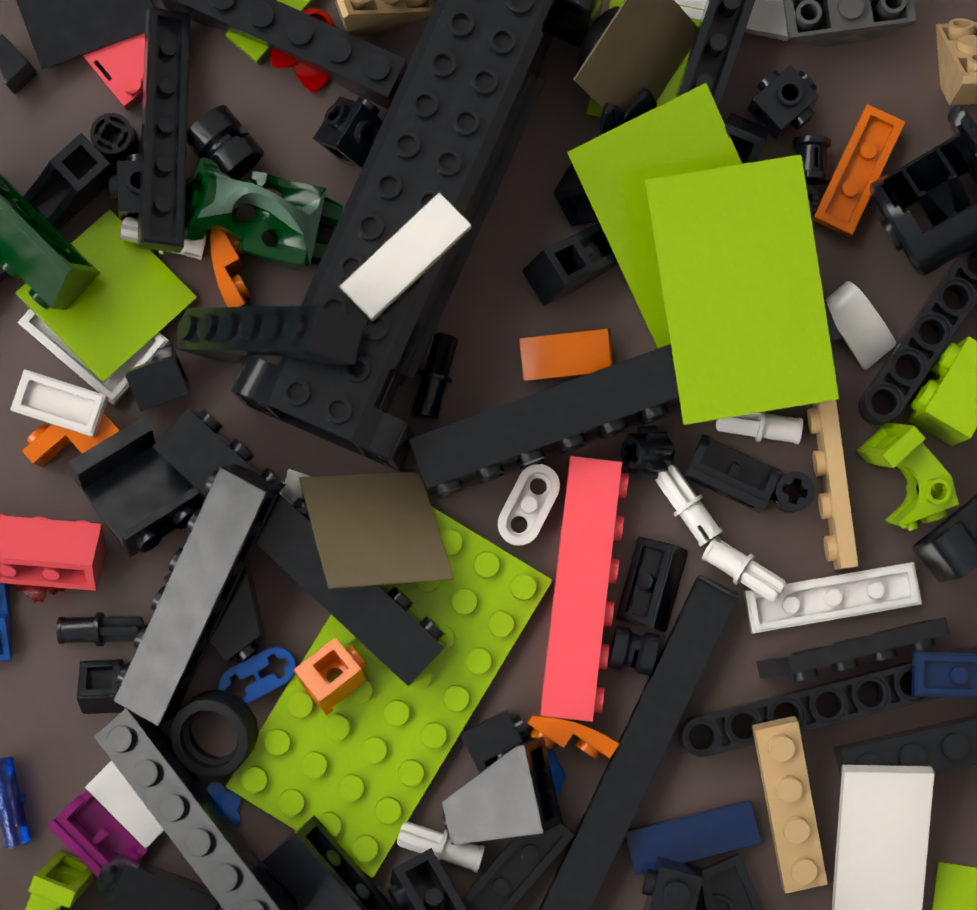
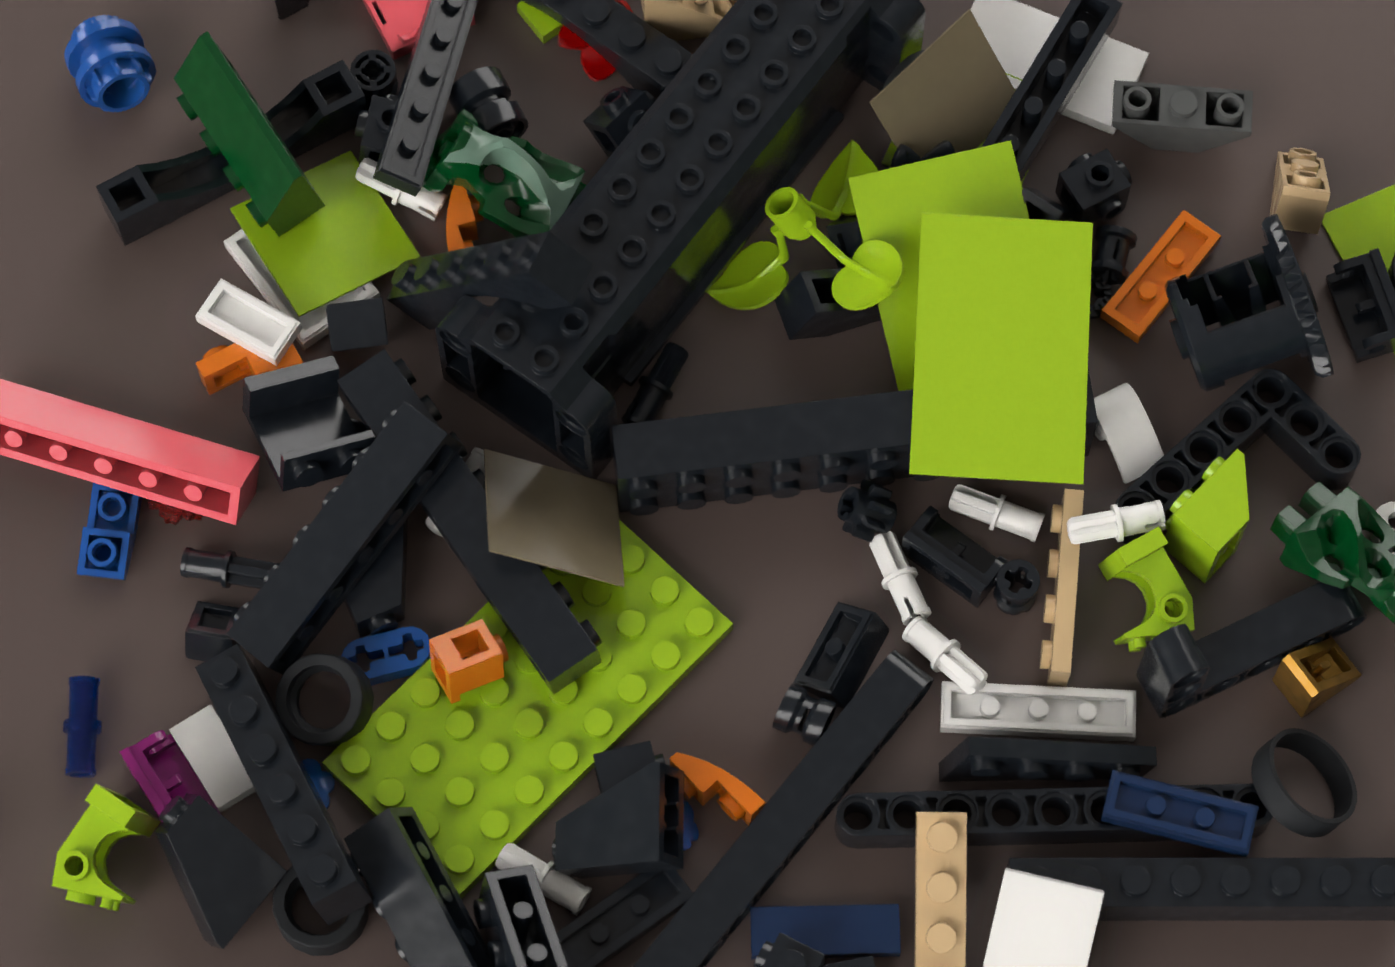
camera: 10 degrees right, 15 degrees down
(405, 257) = (651, 221): white tile -> none
(530, 506) = (723, 542): white plate -> none
(566, 354) = (791, 385): orange slope -> none
(581, 589) = (763, 635): coral brick -> none
(606, 241) = (757, 271): none -> lime plant
(872, 422) = (1116, 522): none -> white axle

